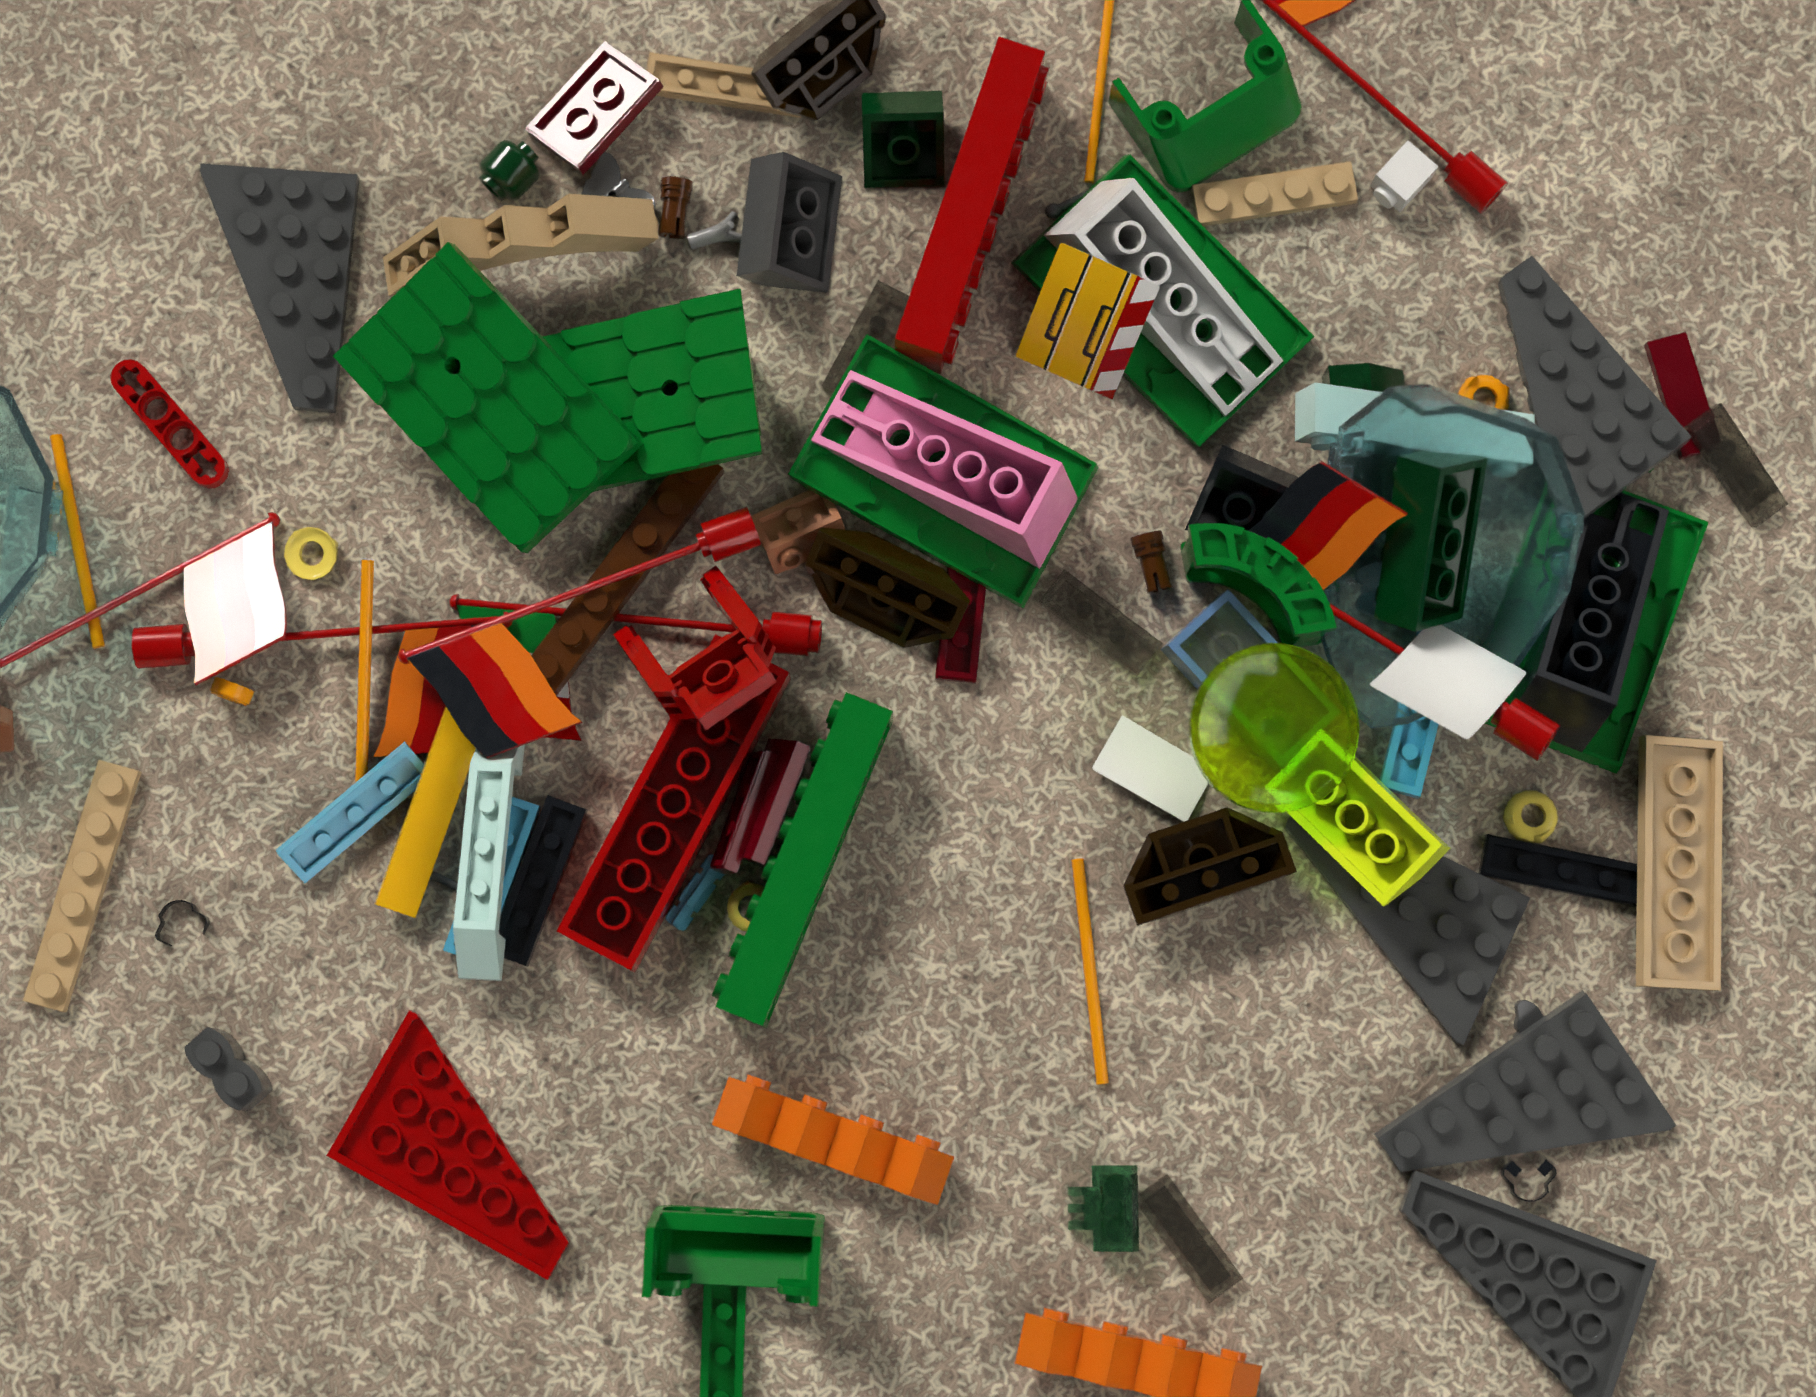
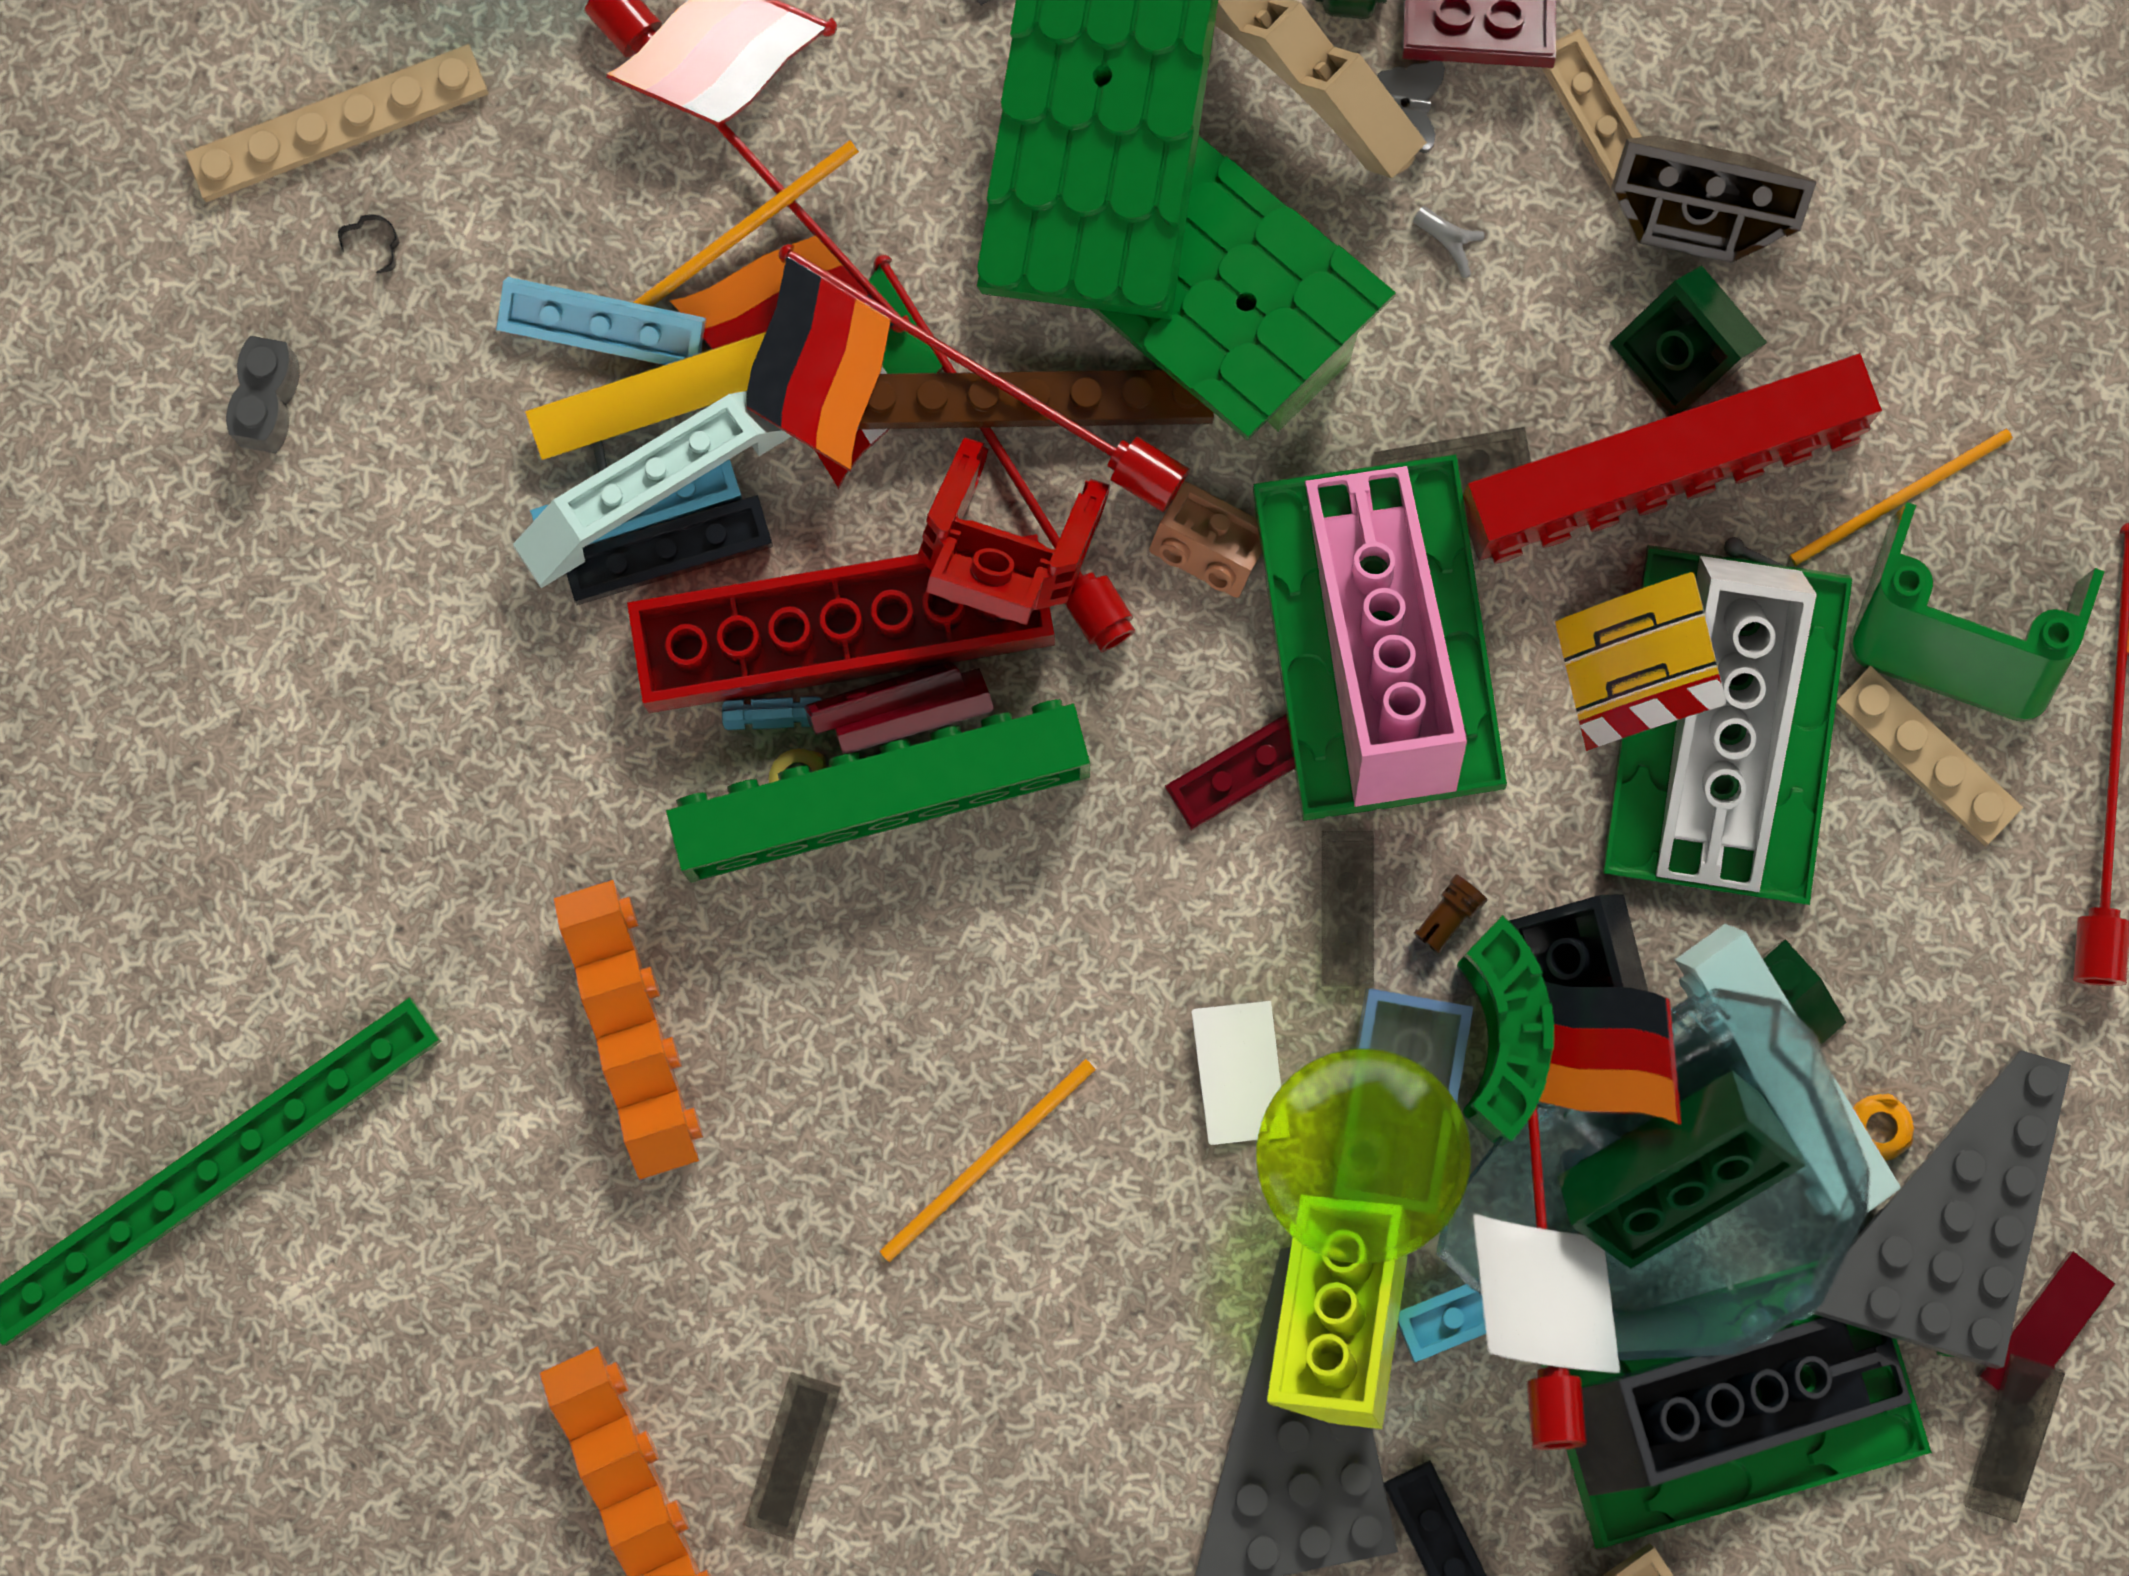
camera: 55 degrees right, 0 degrees up
(231, 691) = (629, 117): light orange tile -> none
(294, 549) = (808, 74): light yellow piece -> none
(438, 1150) = (334, 651): red wing -> none
(675, 197) = (1452, 165): reddish brown pin -> none
(733, 1250) = (445, 1007): green windscreen -> none
(789, 223) = (1512, 296): dark grey slope -> none
(885, 588) = (1215, 665): dark brown wedge -> none
(1109, 1208) = (763, 1354): clear green hinge -> none
(1204, 863) = (1176, 1190): dark brown wedge -> none
(1402, 177) = (2047, 872): white brick -> none
(1514, 821) = (1461, 1489): light yellow piece -> none

